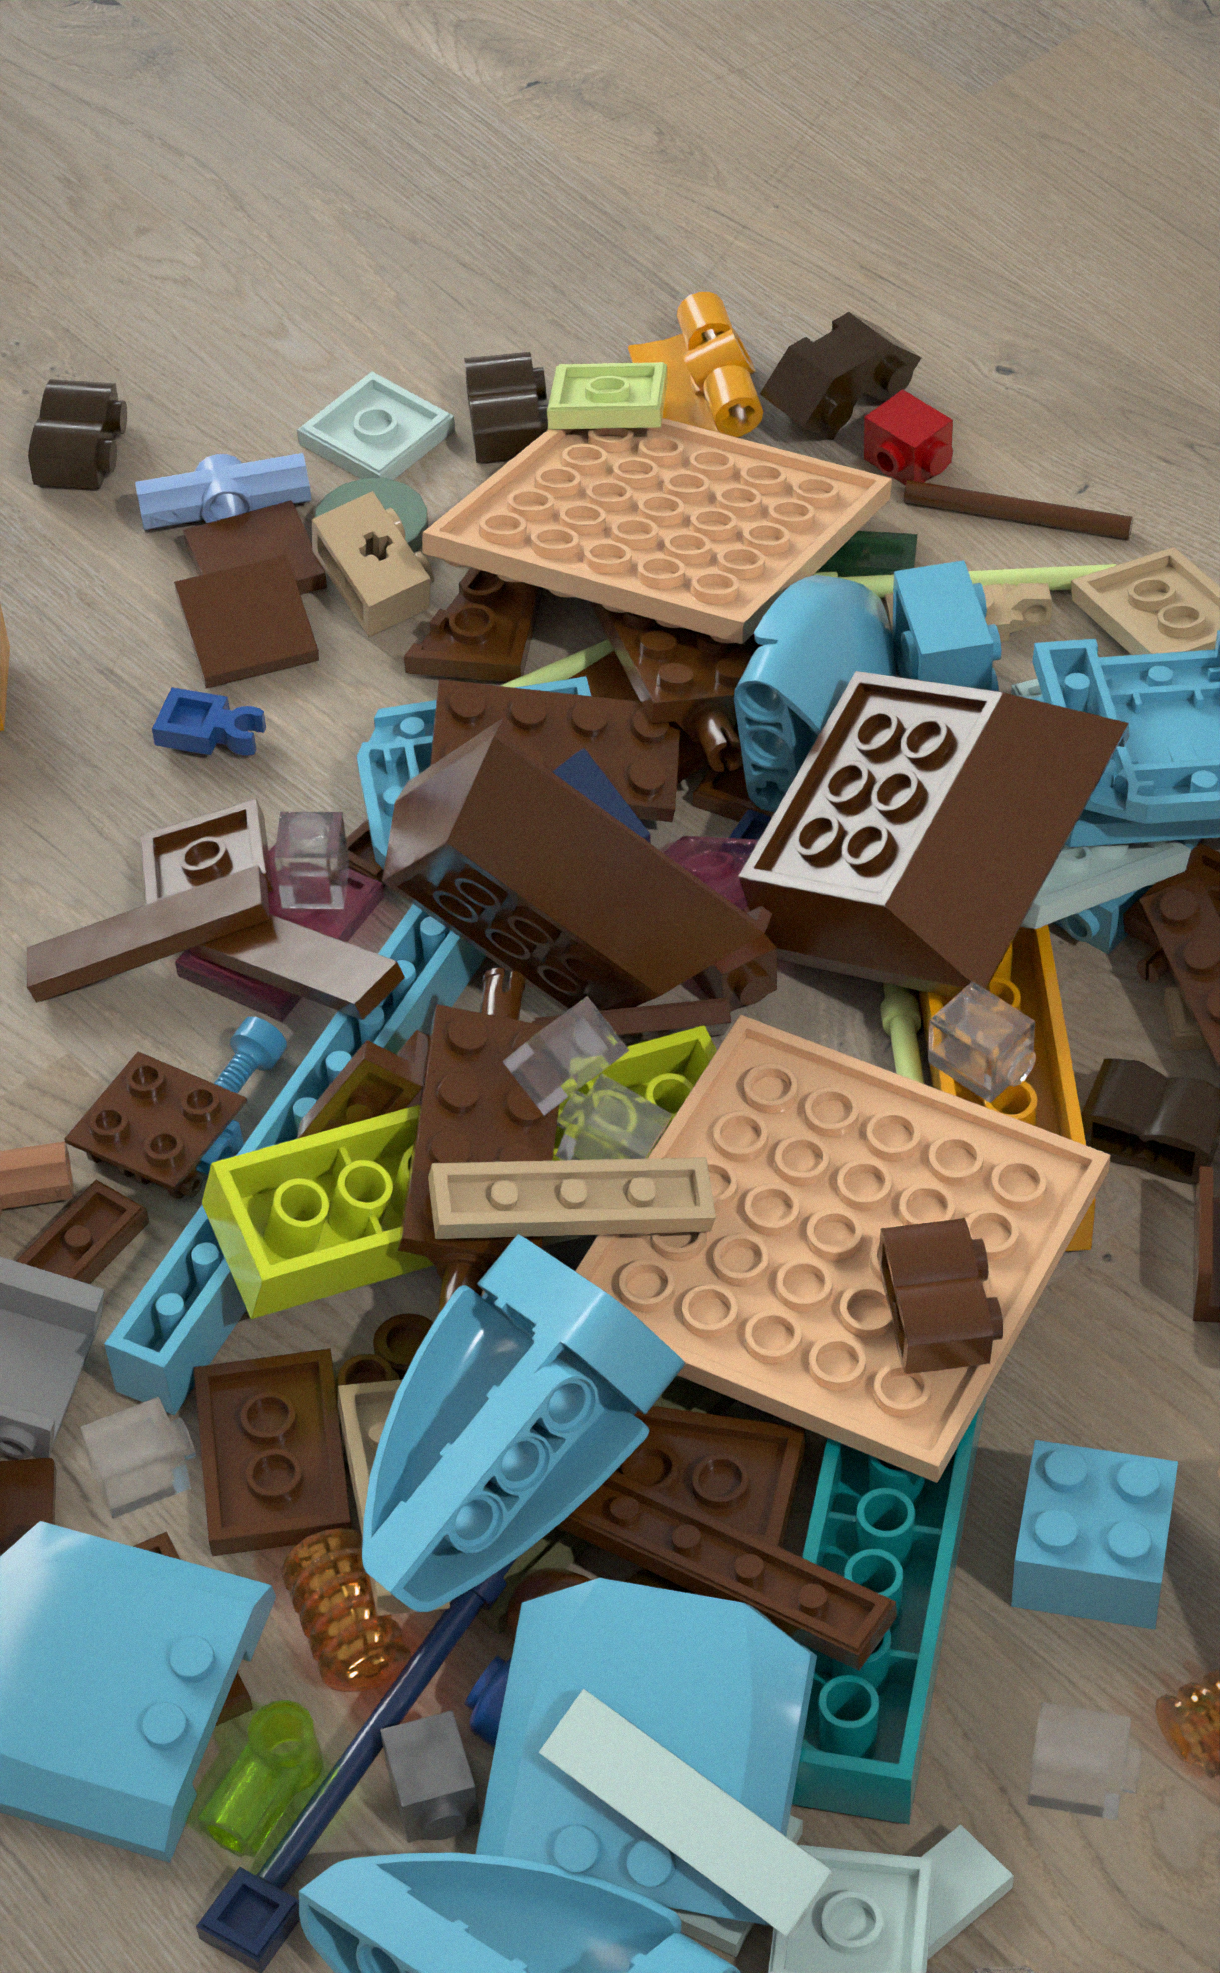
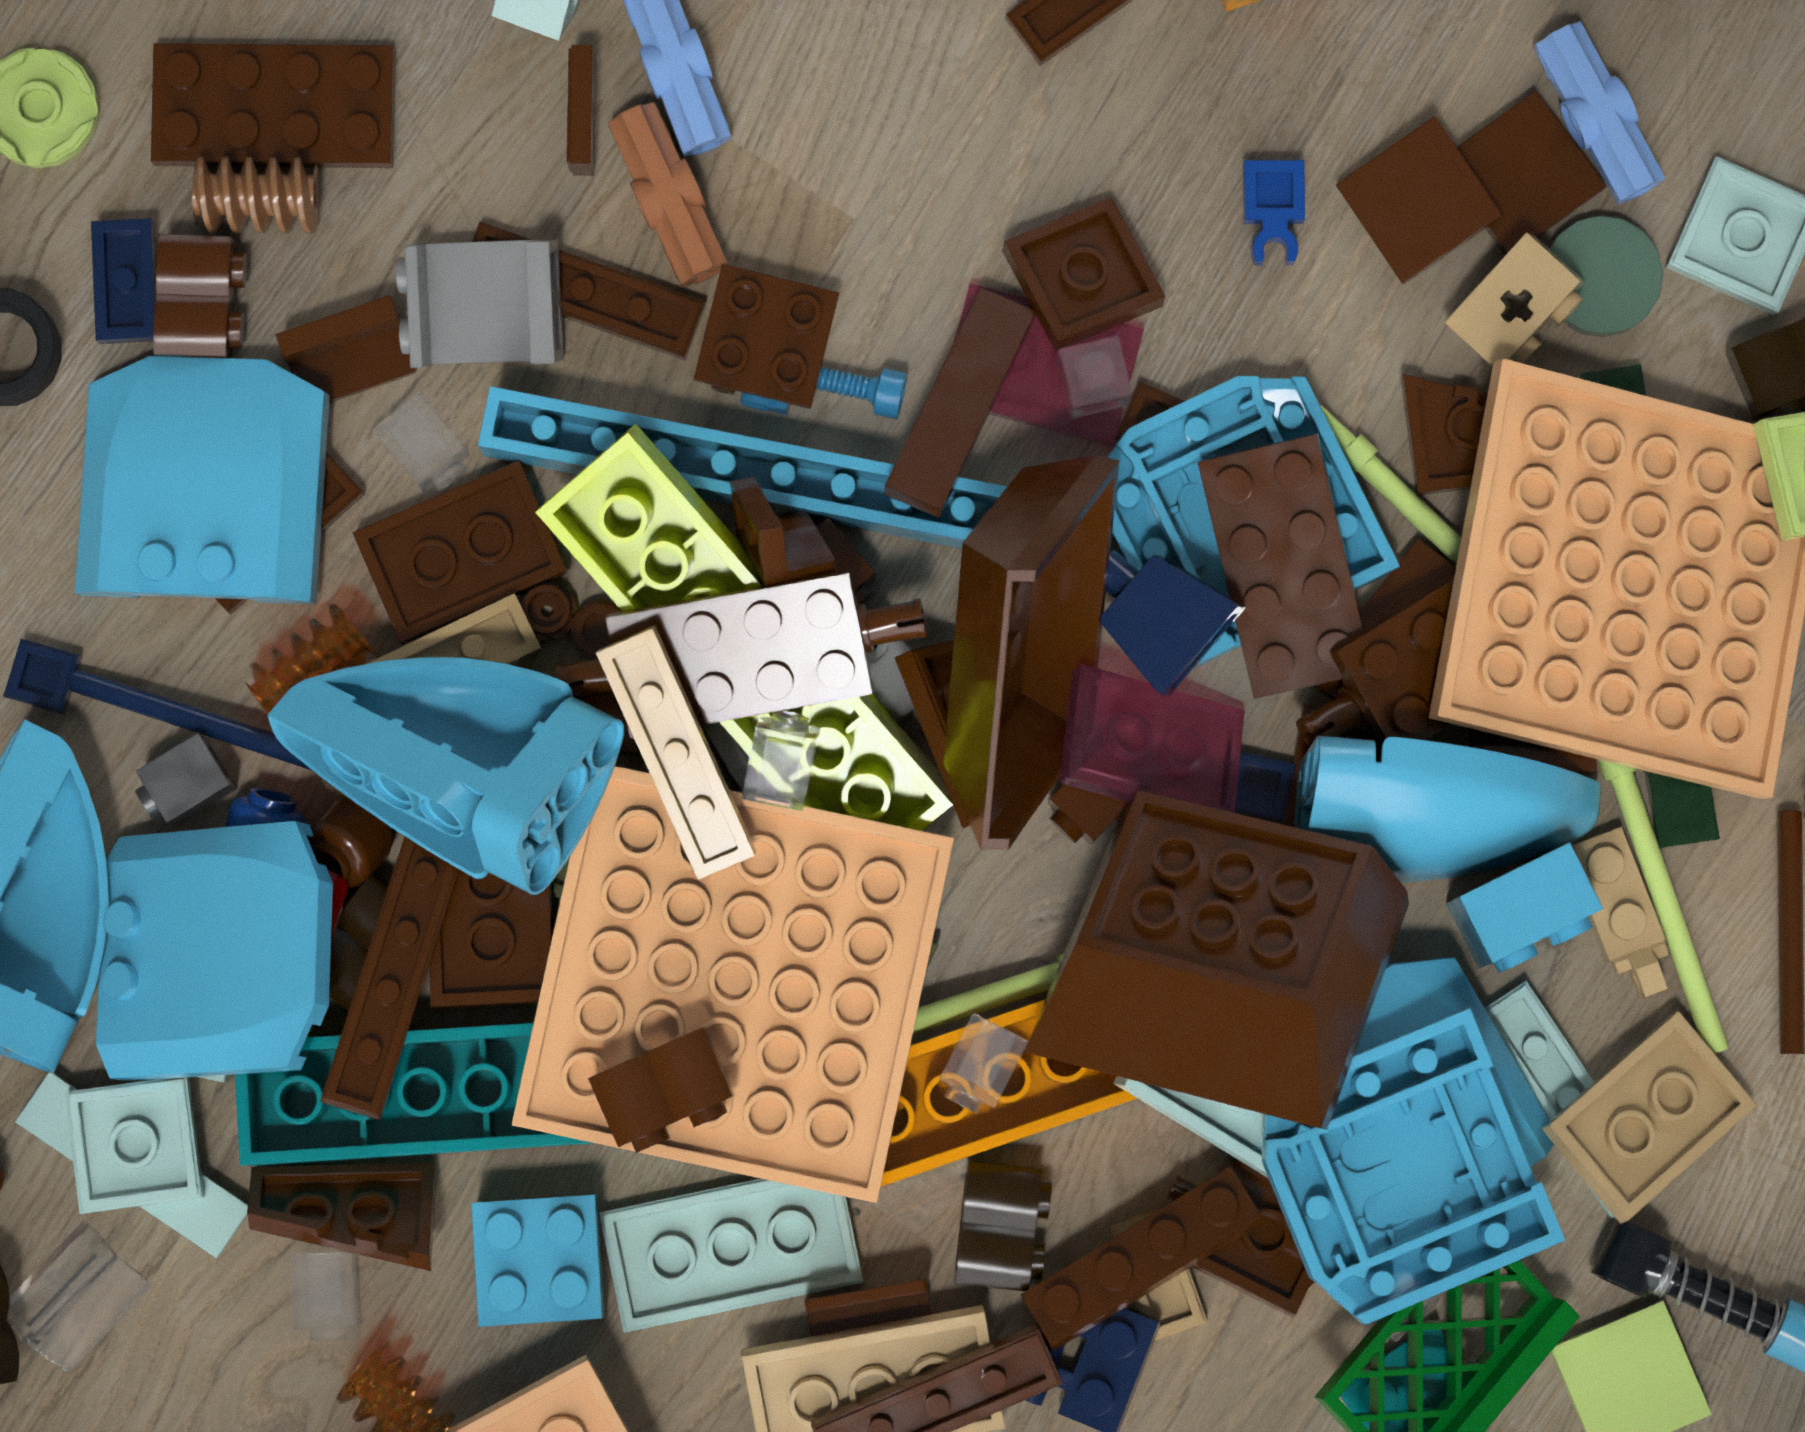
camera: 70 degrees right, 35 degrees up
(147, 933) = (975, 253): tile -> none
(263, 1781) = (147, 649): clear neon green piece -> none
(565, 1055) = (815, 707): clear brick -> none
(687, 1813) = (148, 1000): light aqua tile -> none
(987, 1705) = (350, 1207): none -> reddish brown wing
(1123, 1355) = (727, 1250): none -> light aqua tile

